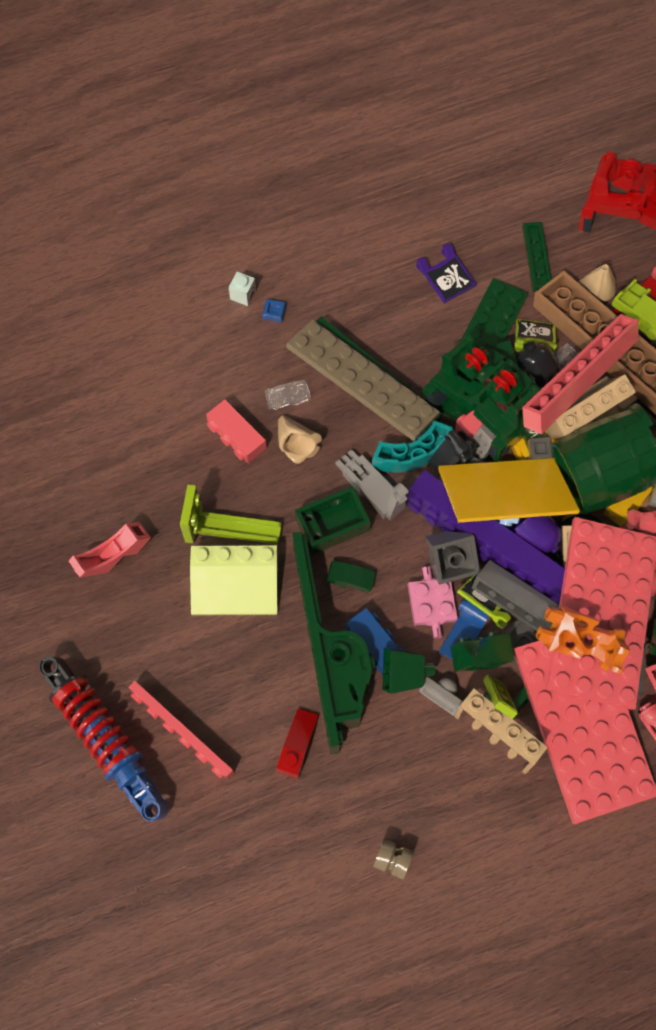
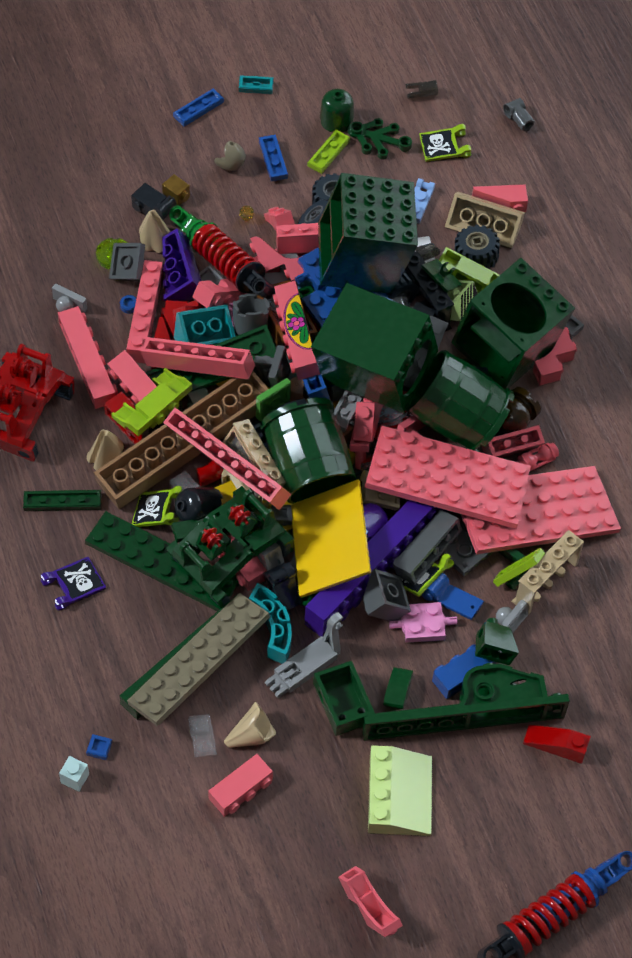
camera: 90 degrees left, 10 degrees down
(186, 738) = (542, 848): coral plate -> none
(195, 521) = (340, 815): lime bracket -> none
(483, 653) = (478, 578): dark green slope -> none
(607, 645) = (470, 494): orange hips -> none

